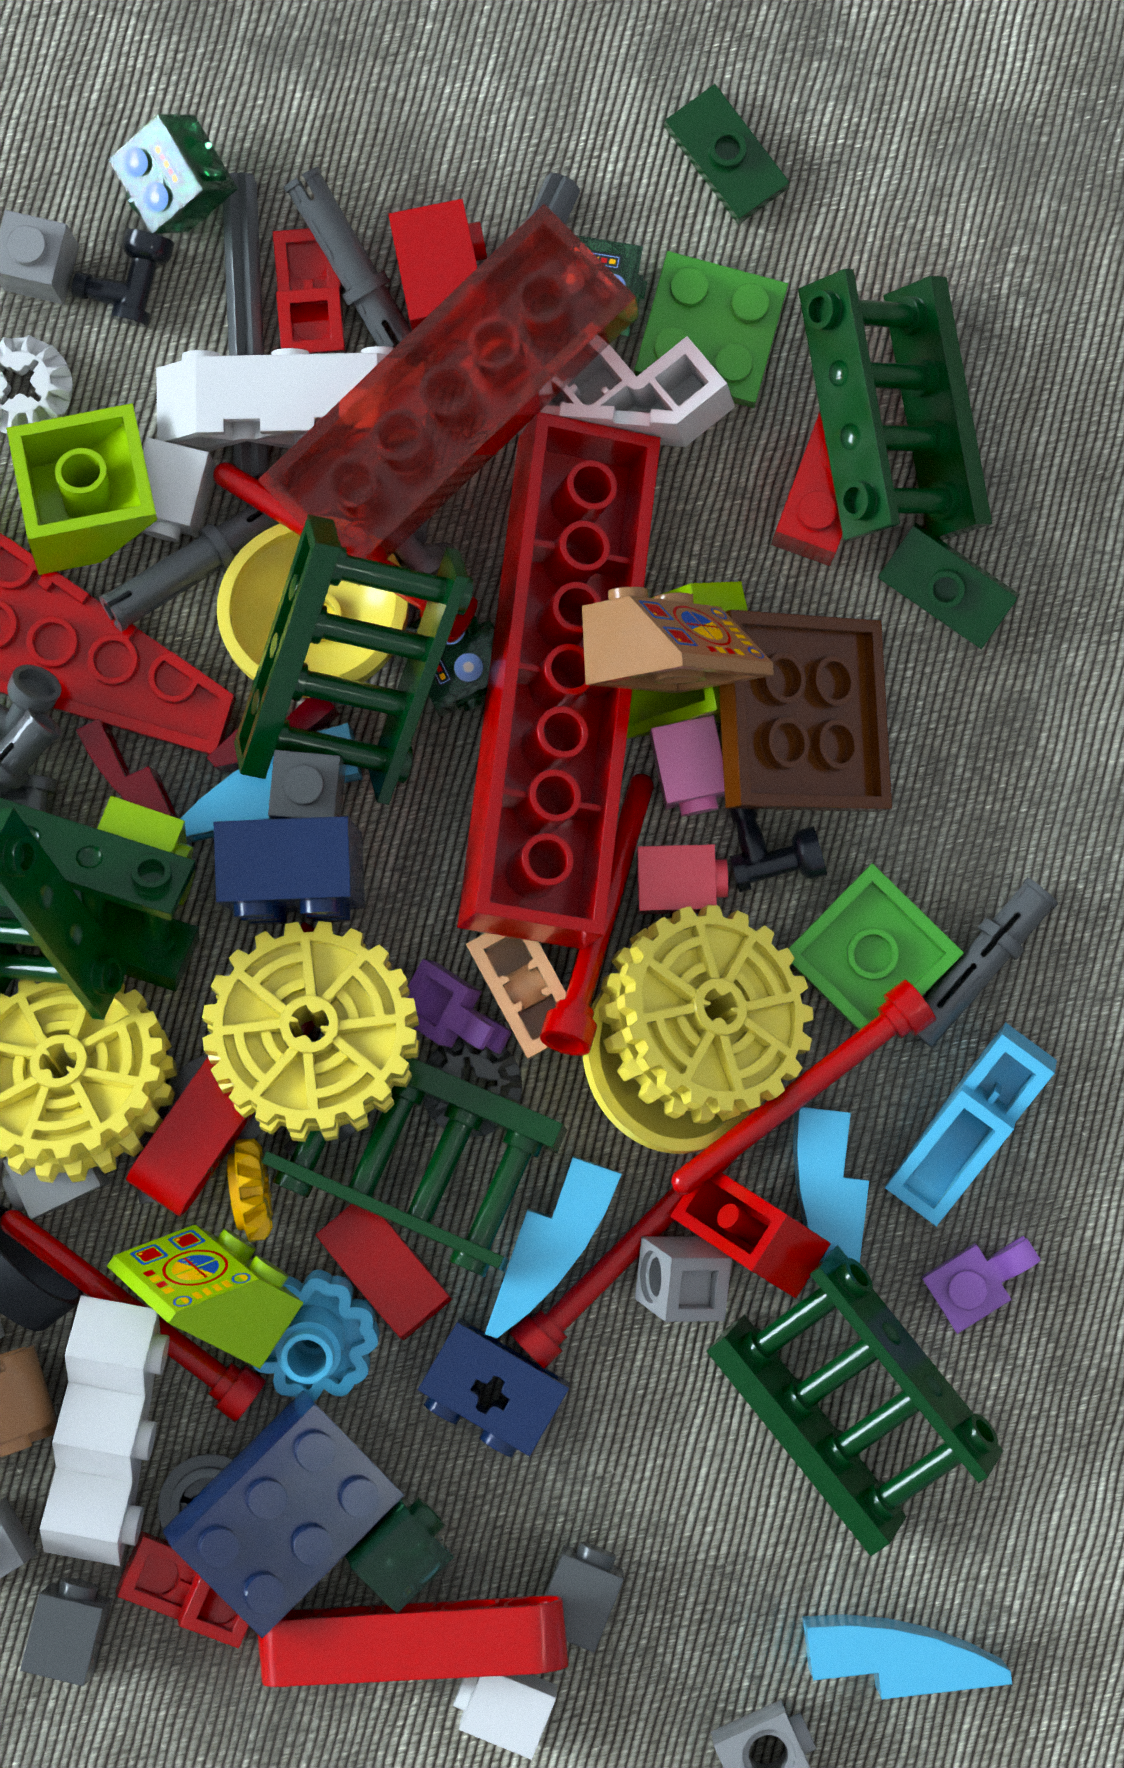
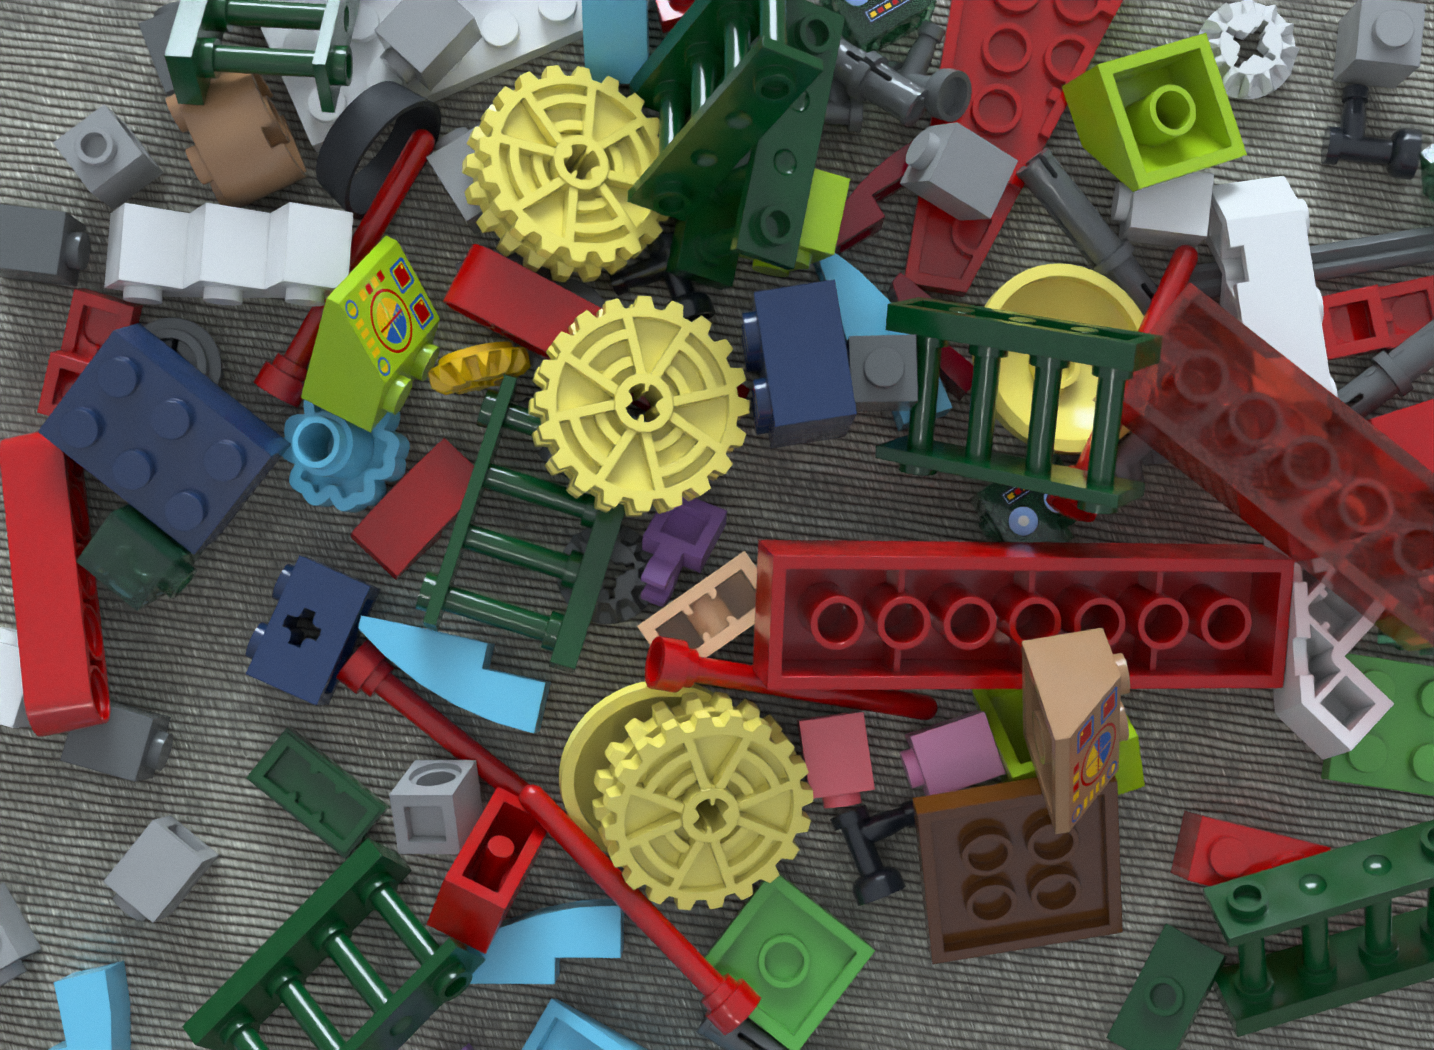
camera: 80 degrees right, 0 degrees up
(114, 689) = (957, 171): none -> light grey brick
(170, 1003) = (653, 270): none -> black piece
(655, 1400) = (317, 792): none -> dark green plate
(715, 1567) = (159, 870): none -> light grey brick

